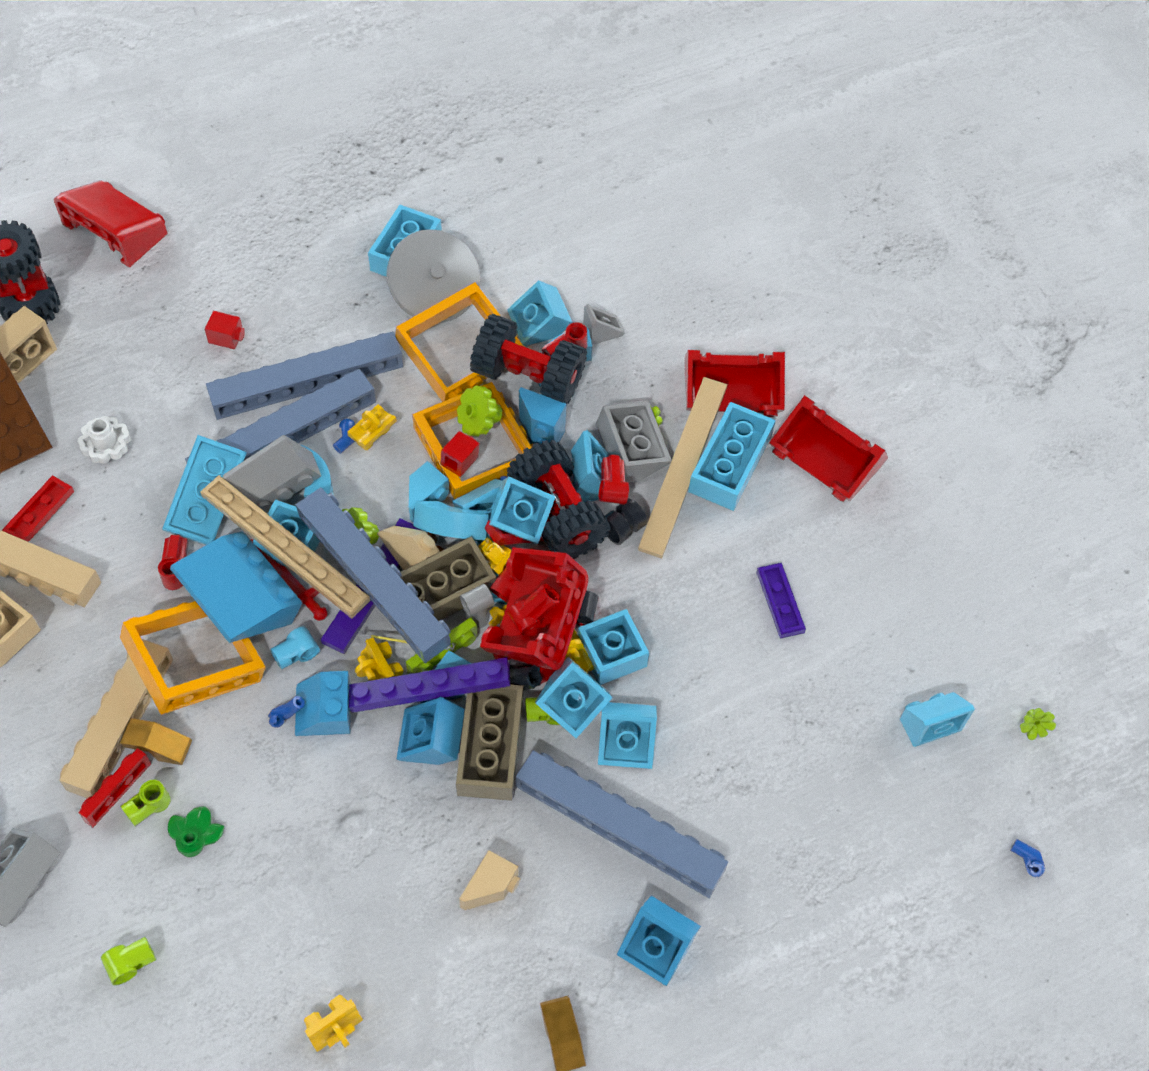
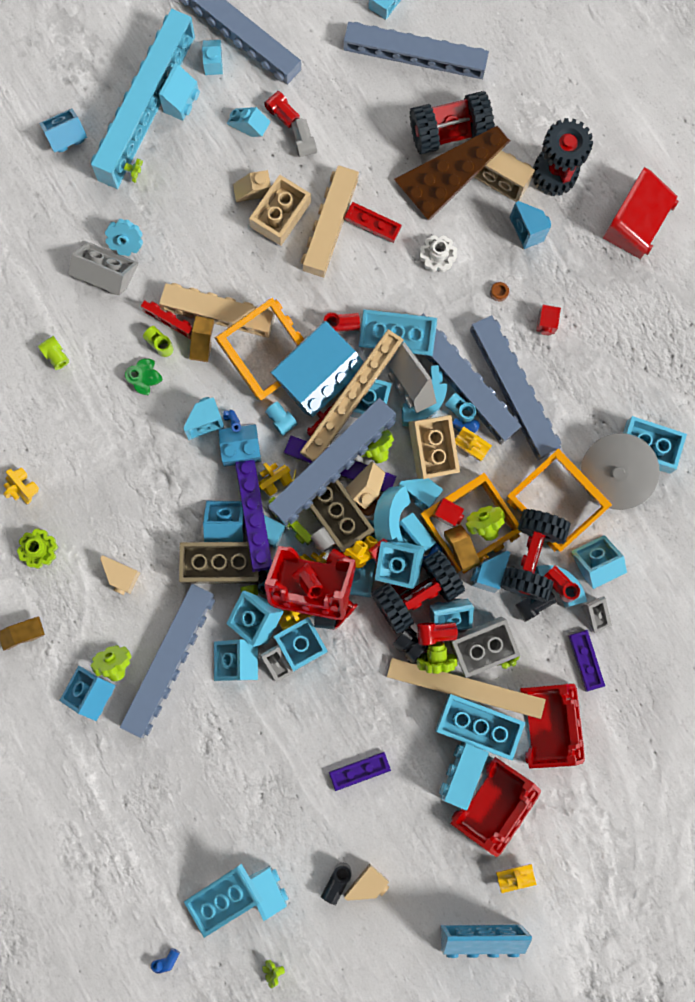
camera: 80 degrees right, 20 degrees up
(92, 330) = (530, 224): none -> dark azure slope
(173, 380) = (499, 291): none -> dark orange tile
(275, 739) = (203, 418): none -> medium azure slope
(319, 437) = (452, 404): none -> medium azure piece
(369, 463) = (434, 447): none -> tan brick
(439, 1016) = (45, 552): none -> lime plant
(506, 440) = (463, 548): none -> pearl gold slope
(589, 391) = (530, 608): none -> black piece
(617, 897) = (111, 662): none -> lime plant
(632, 683) = (276, 663): none -> light grey slope
(647, 488) = (437, 659): none -> lime plant
(656, 344) = (586, 660): none -> dark purple tile
(791, 476) = (463, 775): none -> medium azure brick
(913, 440) = (516, 878): none -> yellow hips
(922, 636) = (336, 884): none -> black piece
(923, 601) = (368, 885): none -> tan slope
(949, 766) = (223, 900): none -> medium azure tile
(986, 477) = (484, 940): none -> dark azure slope

